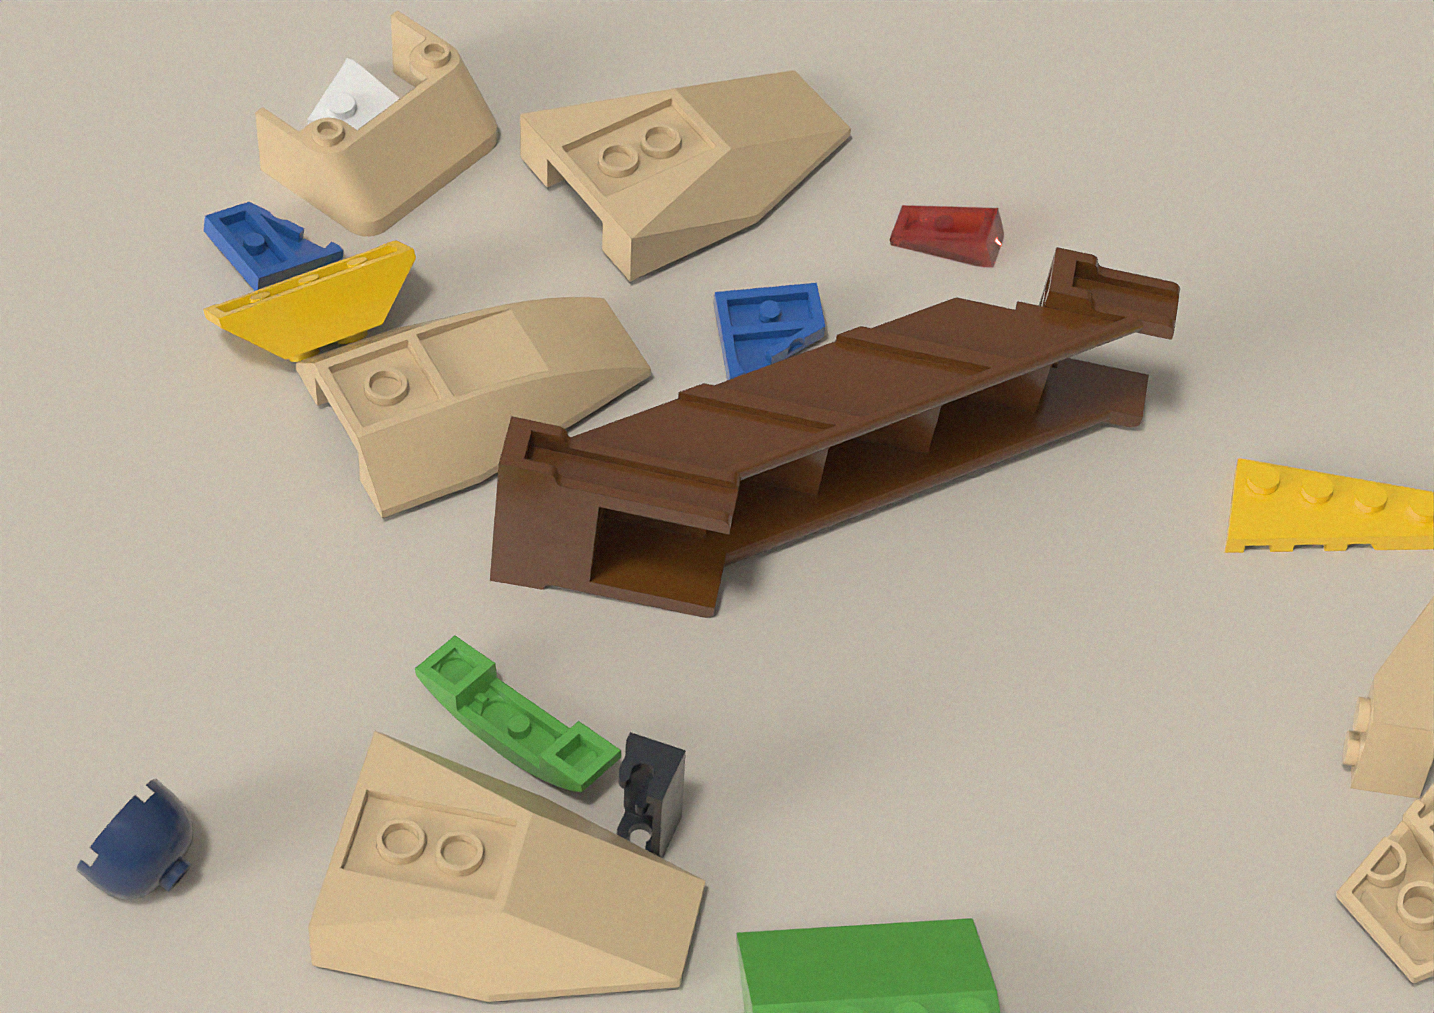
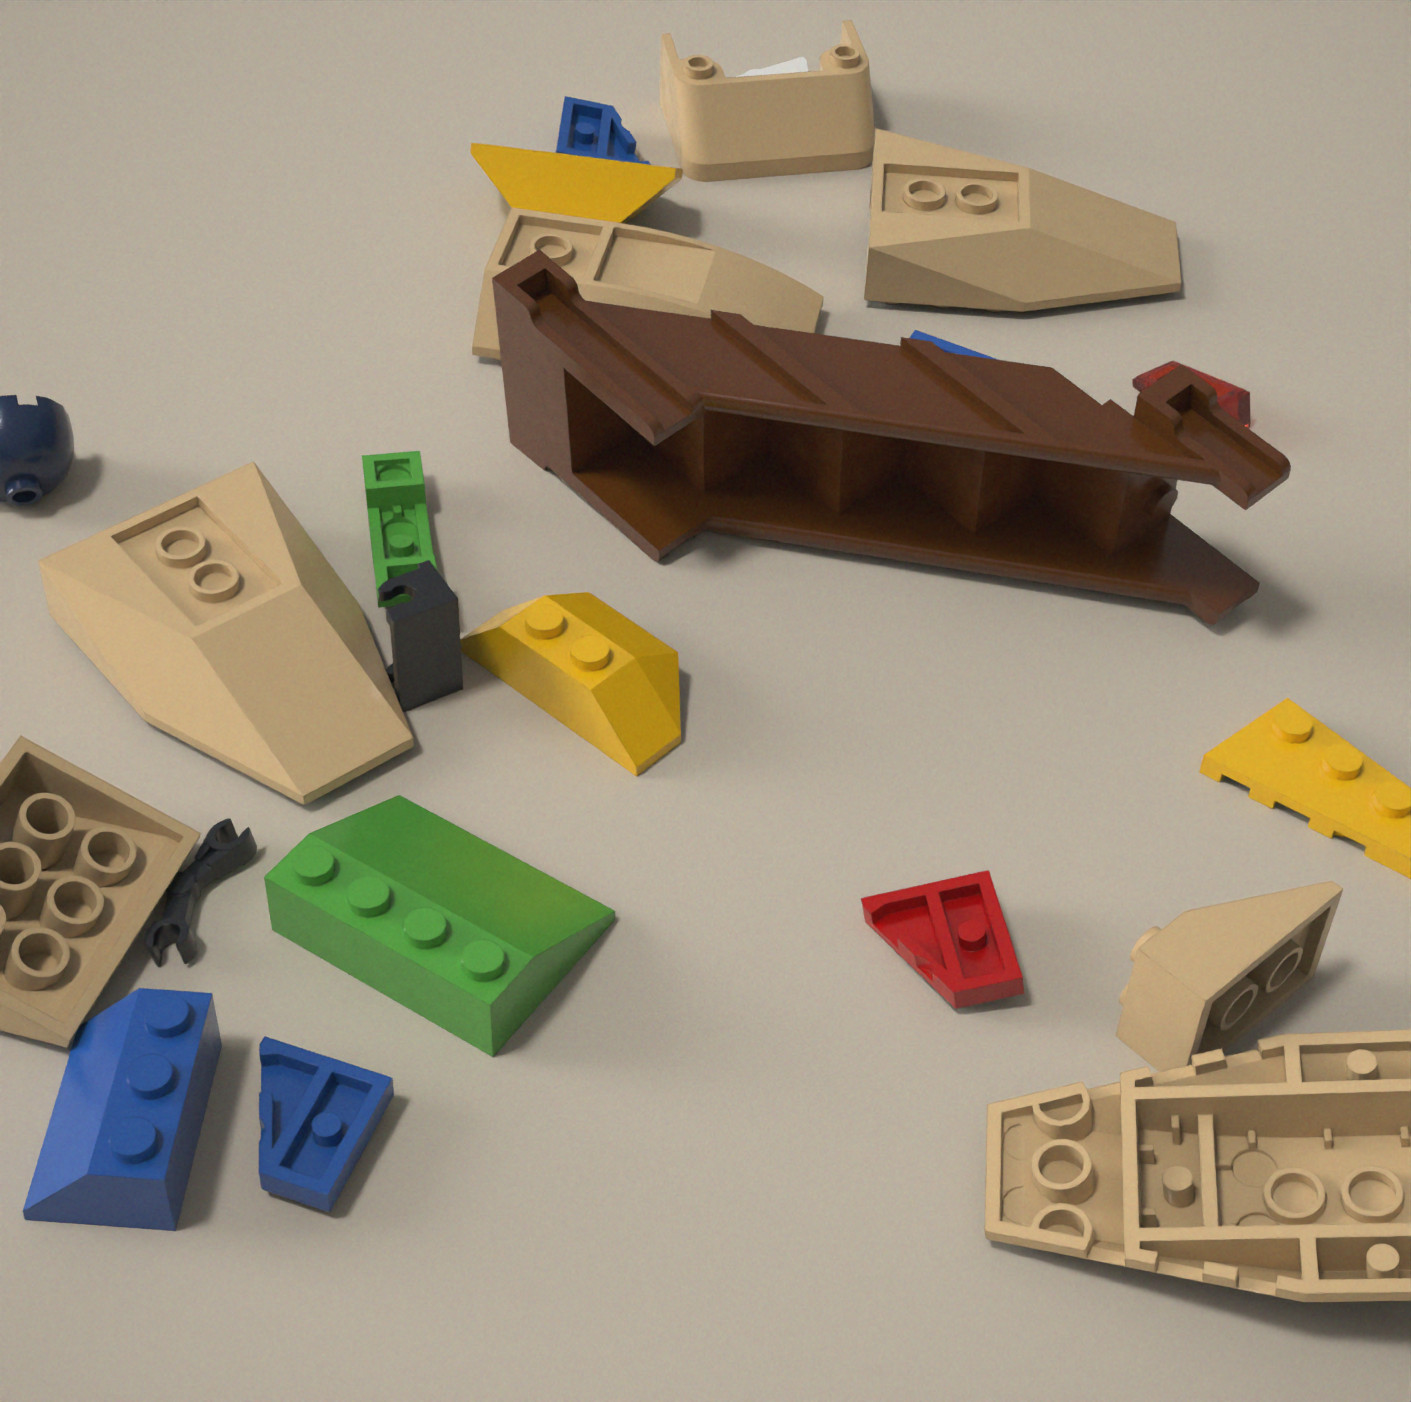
camera: 40 degrees right, 5 degrees down
(770, 742) = (588, 673): none -> yellow wedge
(1204, 787) = (951, 937): none -> red wing

